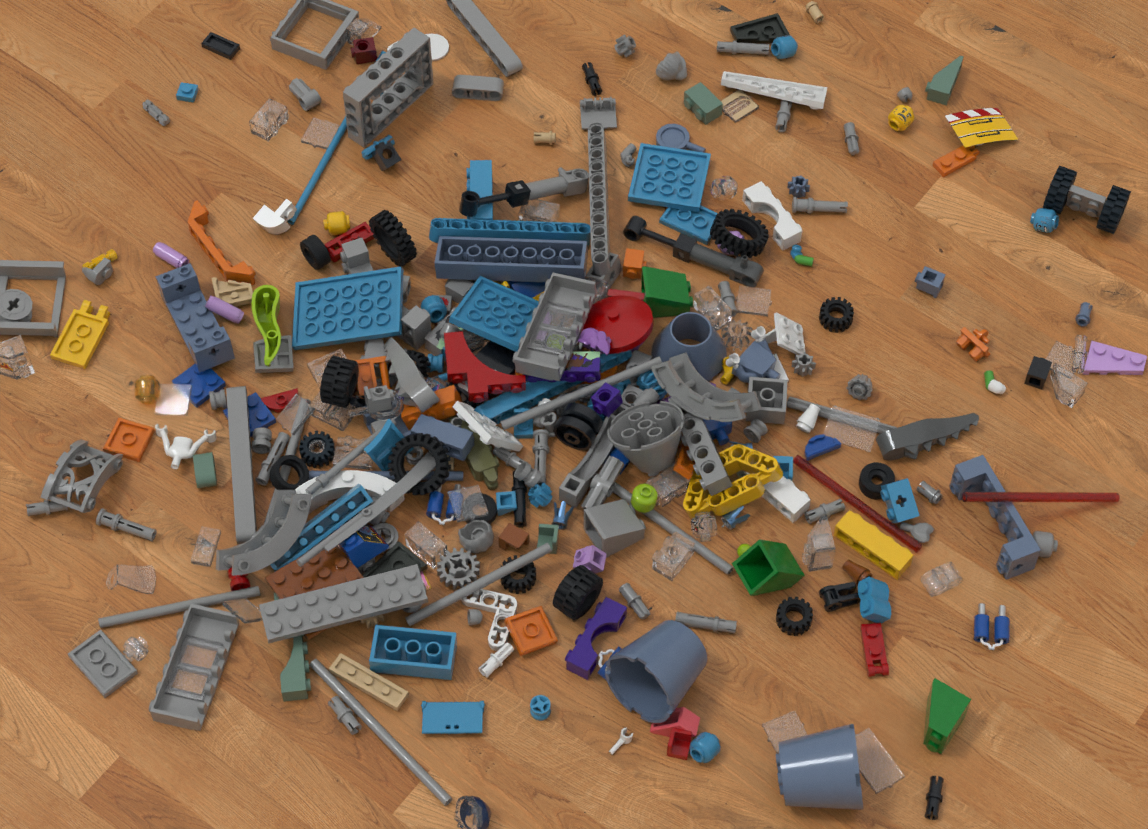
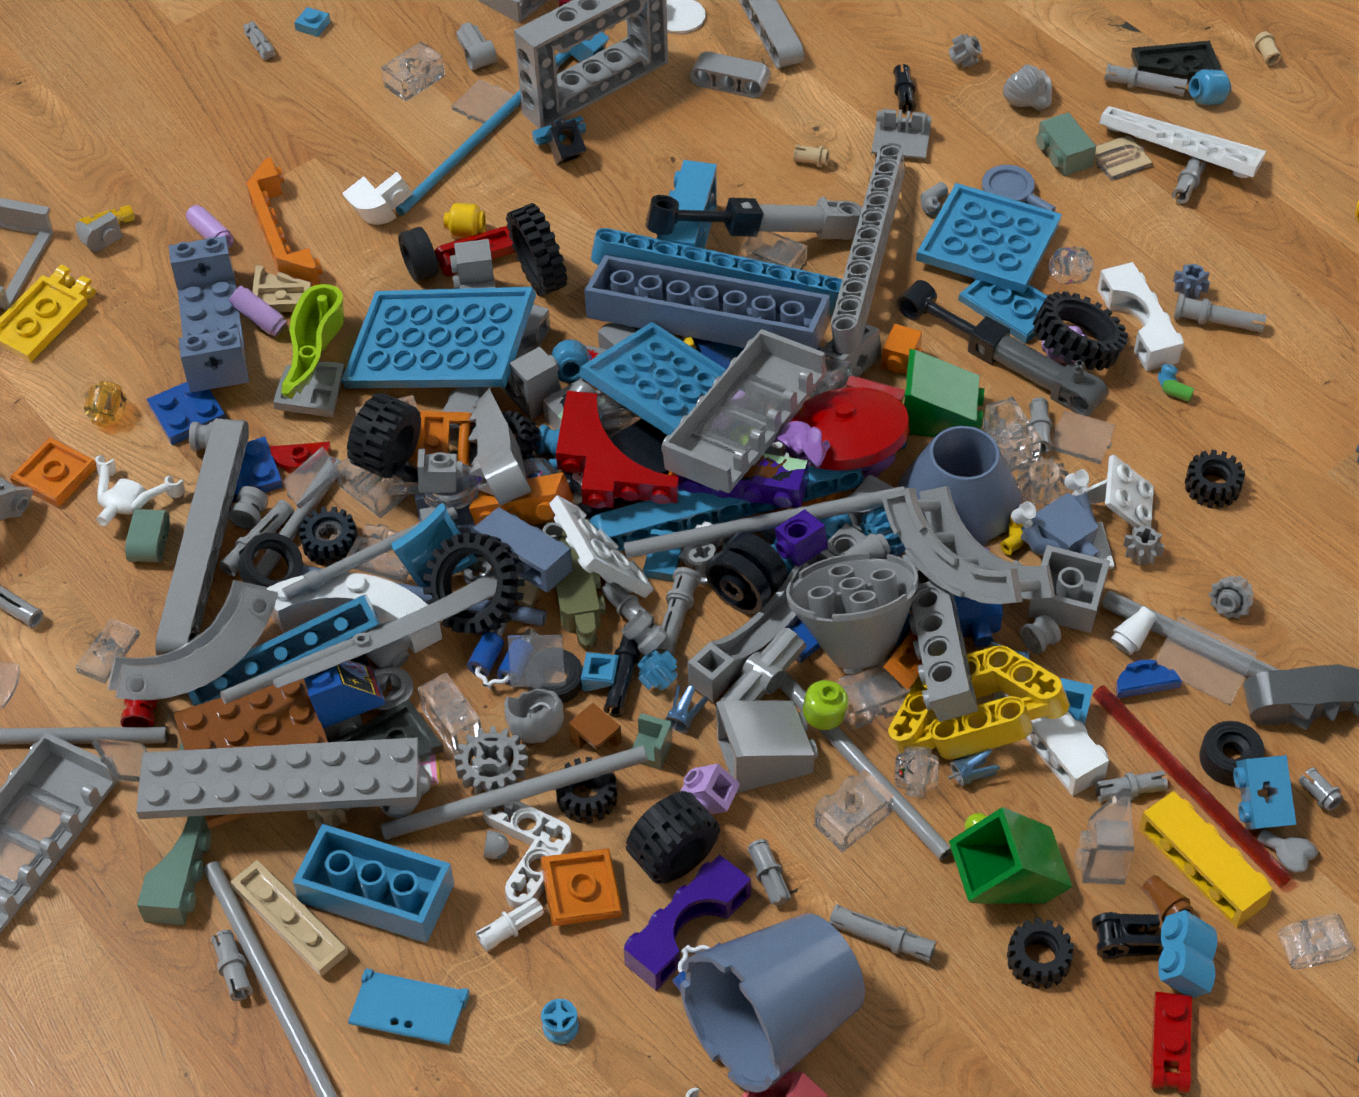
camera: 15 degrees right, 5 degrees down
(173, 399) = (139, 425): clear piece -> none
(851, 138) = (1290, 227): light grey axle -> none

